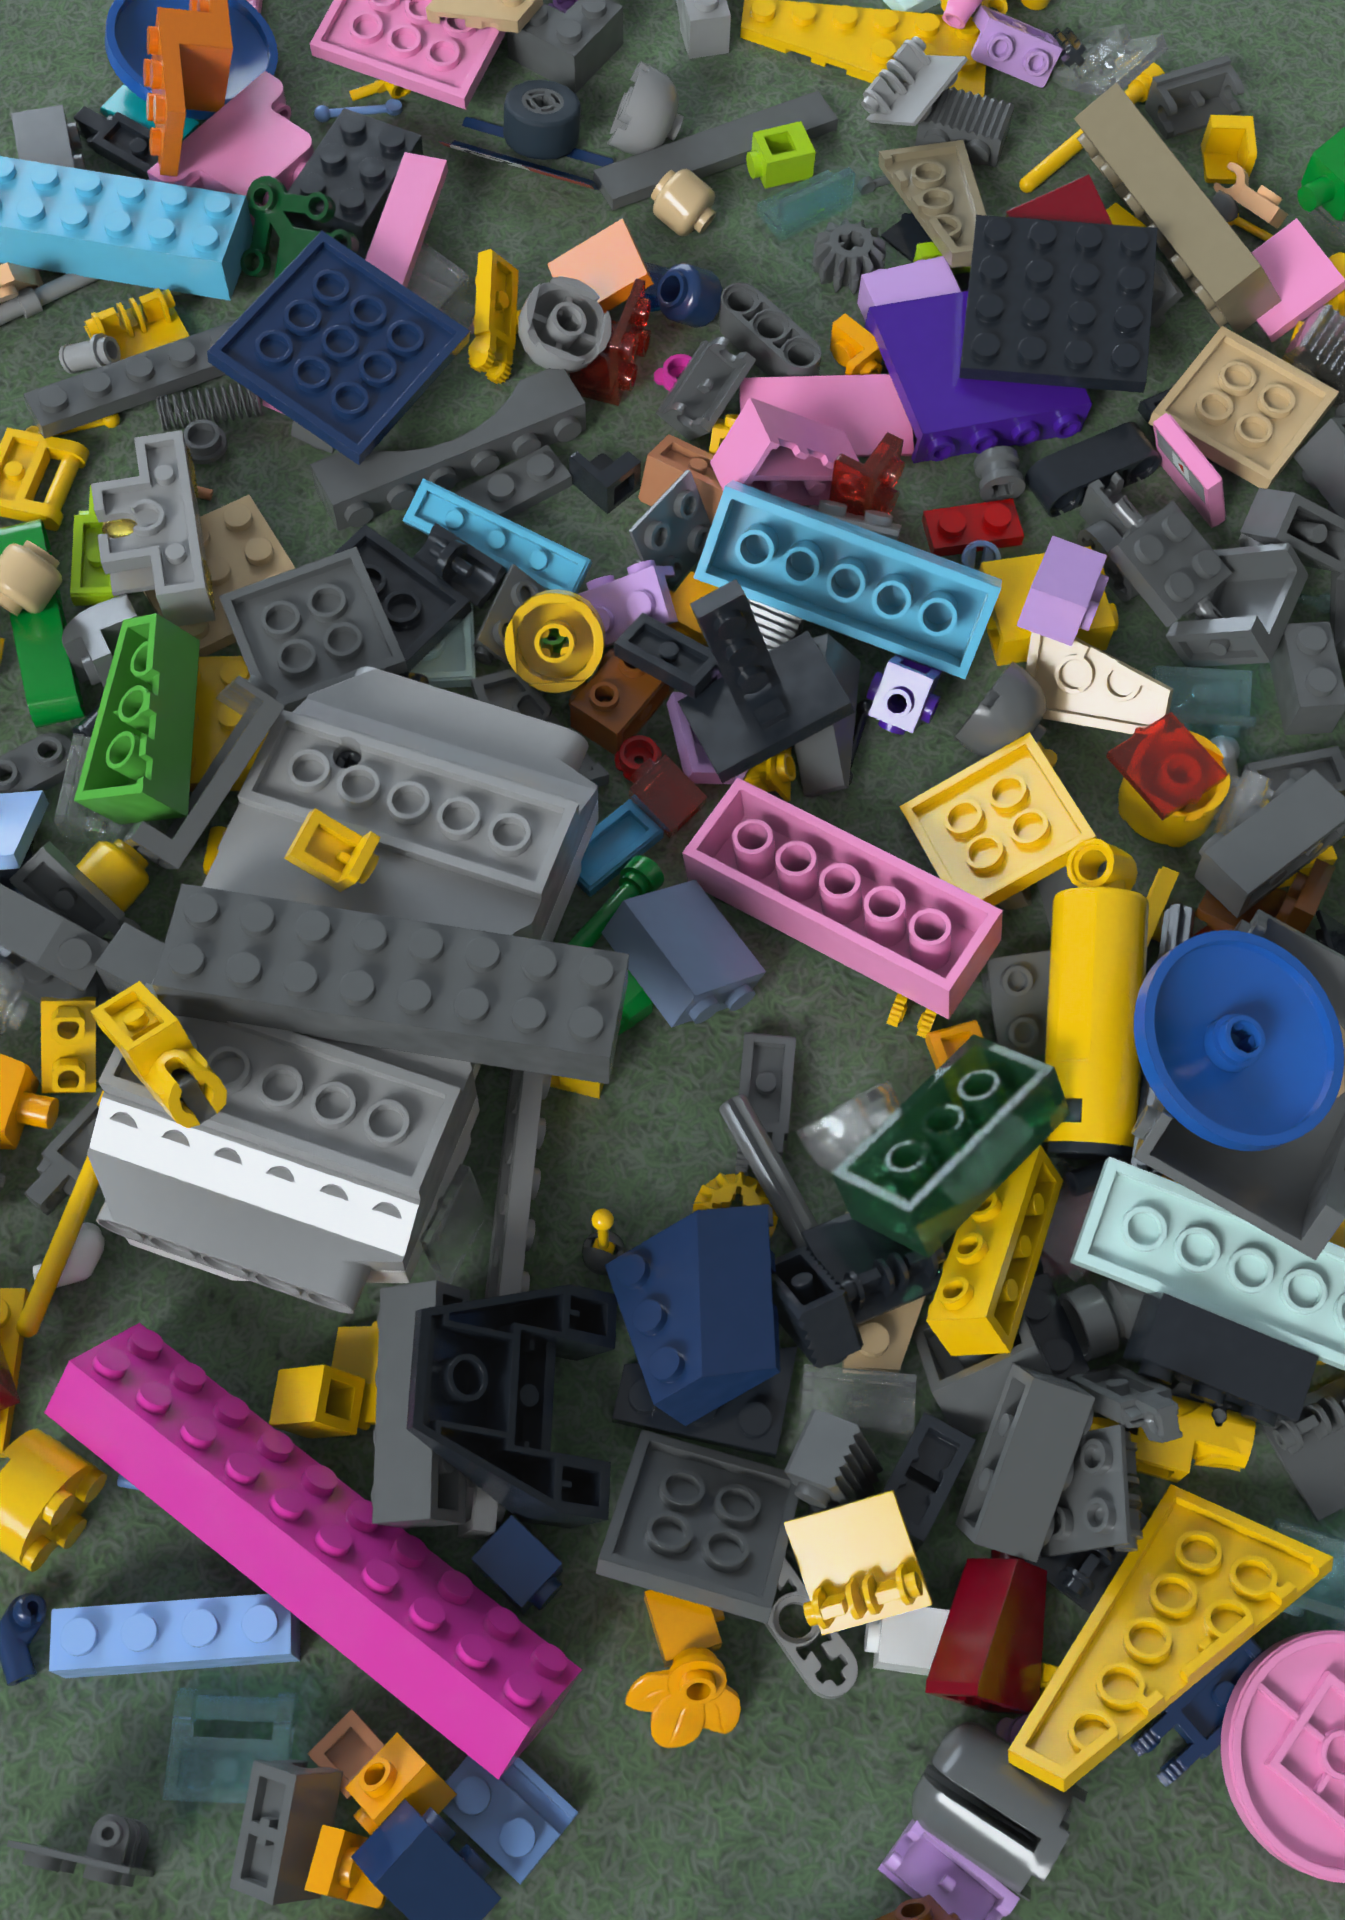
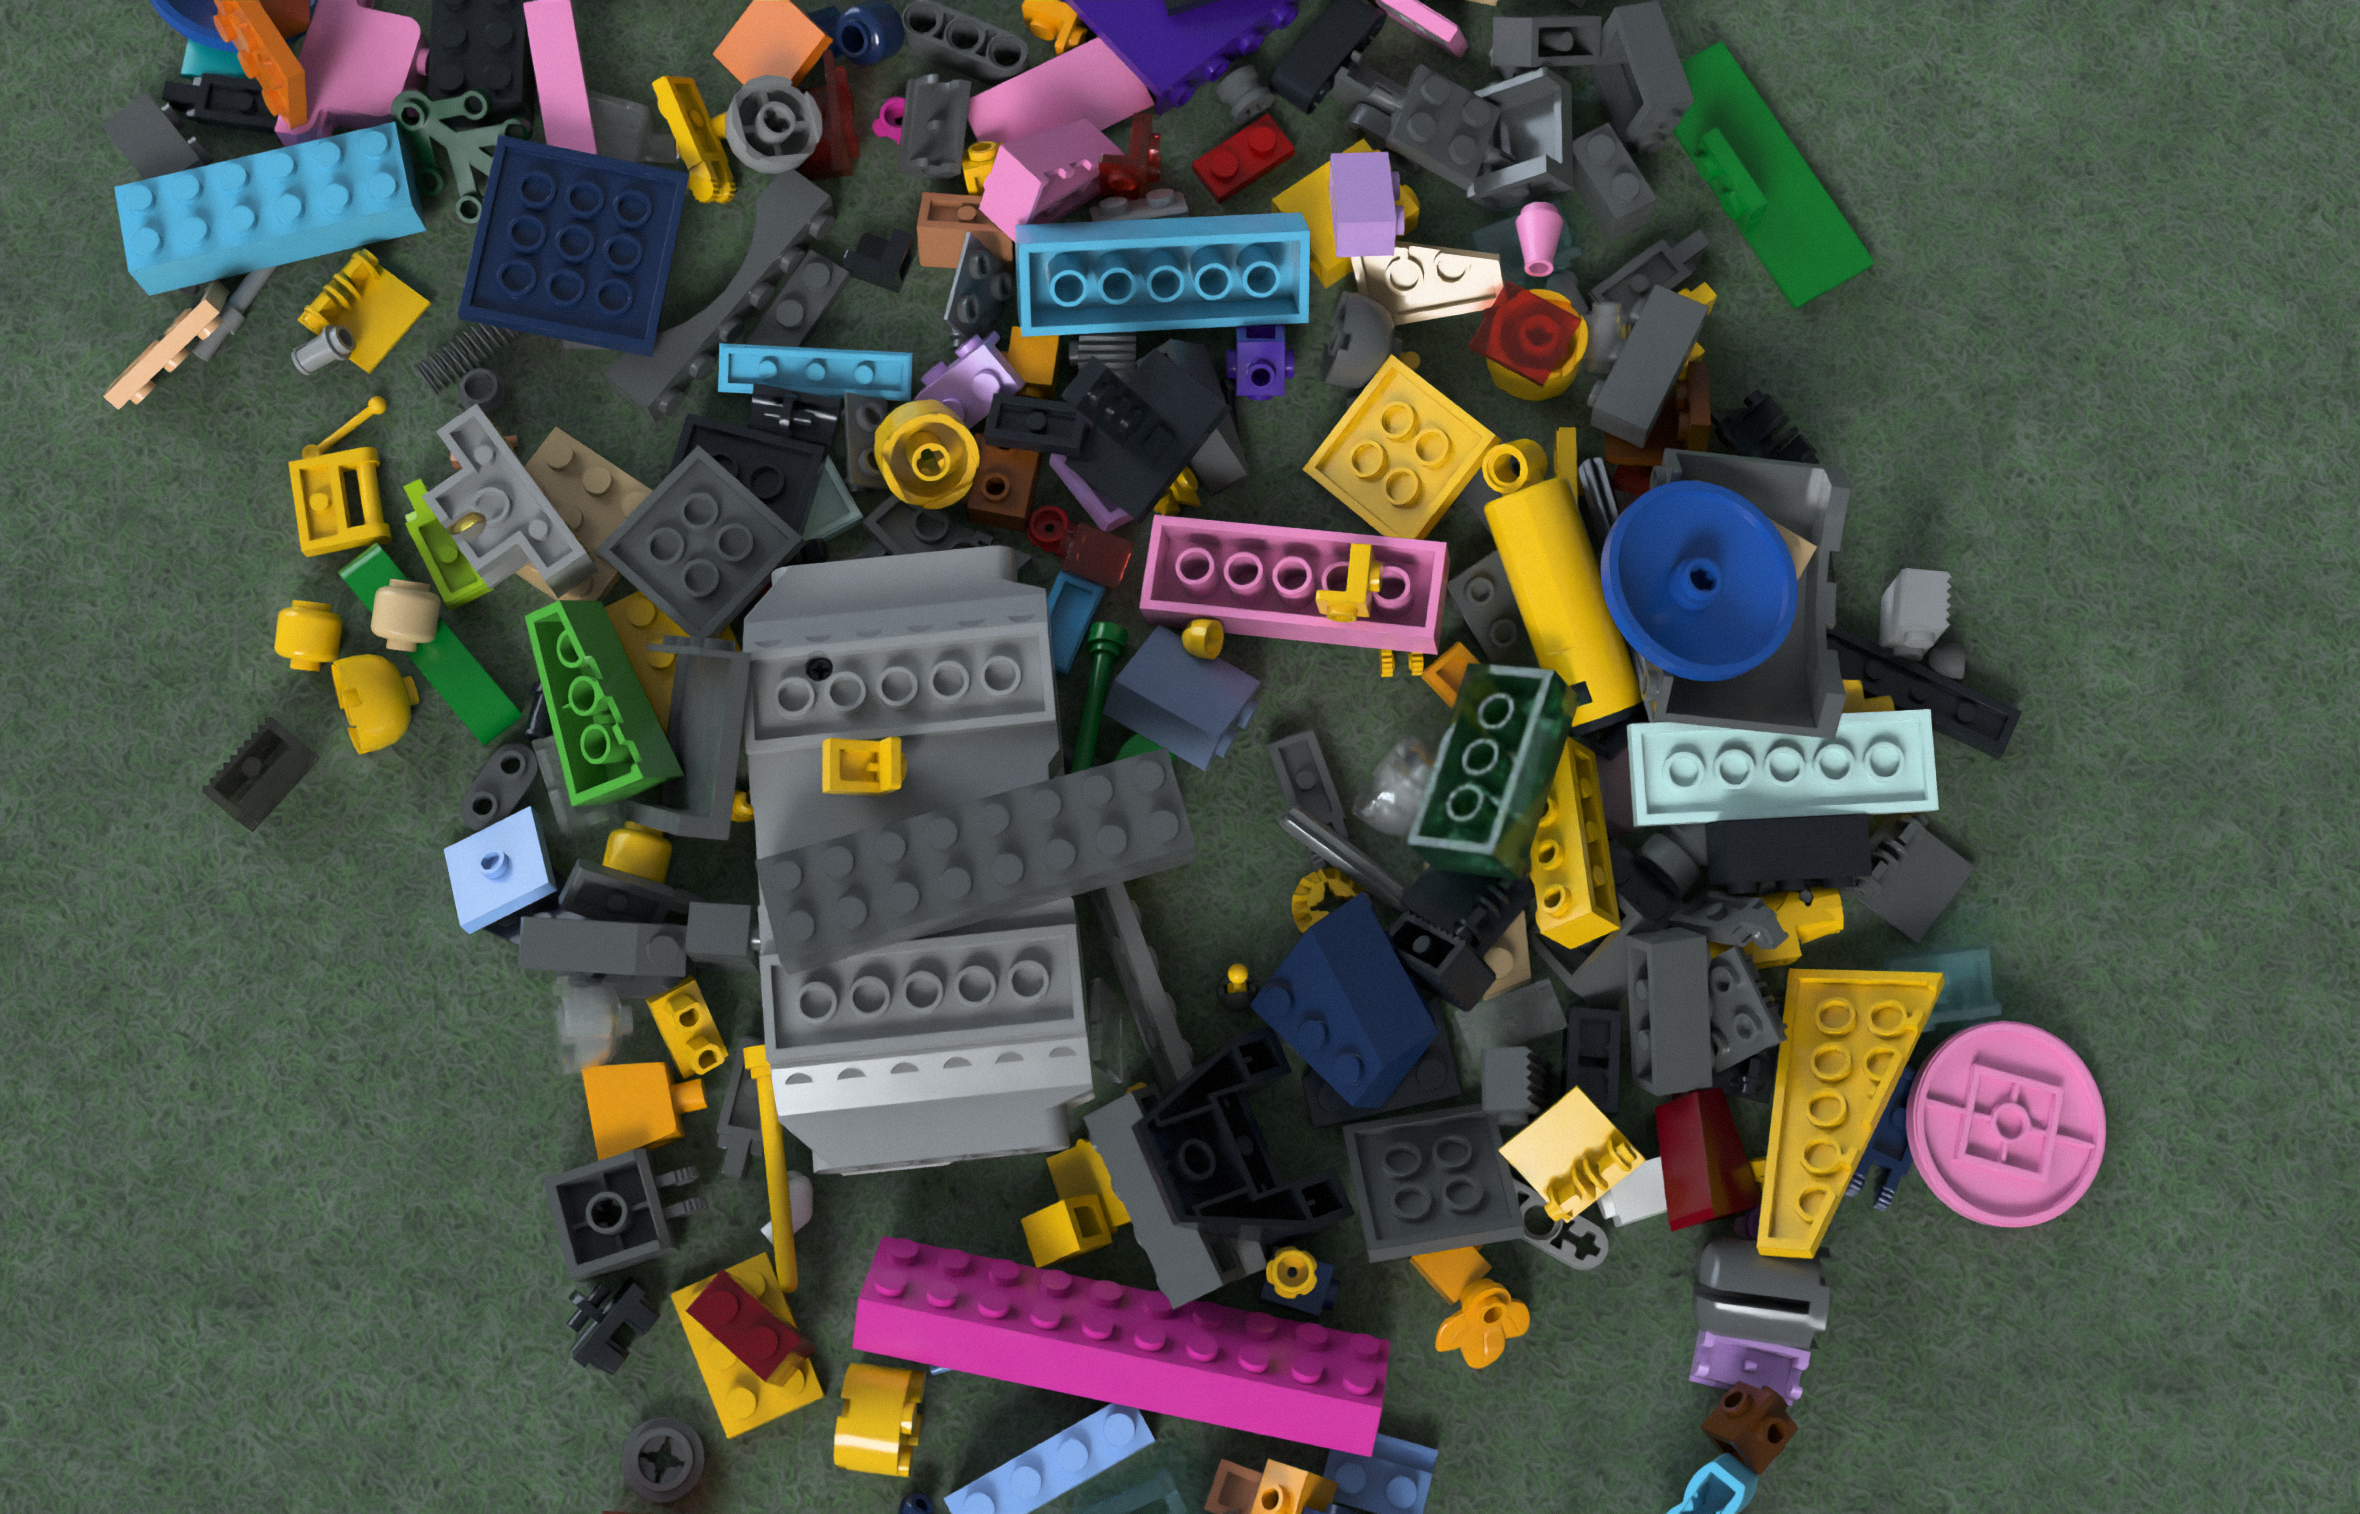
camera: 20 degrees left, 10 degrees up
(93, 638) = (501, 639): dark grey brick -> none
(124, 383) = (388, 351): dark grey plate -> none
(161, 1055) = (815, 1015): yellow plate -> none
(498, 1542) = (1300, 1260): none -> yellow plate
(730, 906) = (1203, 638): none -> yellow hinge
(902, 906) = (1363, 578): none -> yellow bracket
(989, 553) = (1273, 183): medium blue hinge -> none
(1218, 690) = (1539, 234): none -> bright pink cone

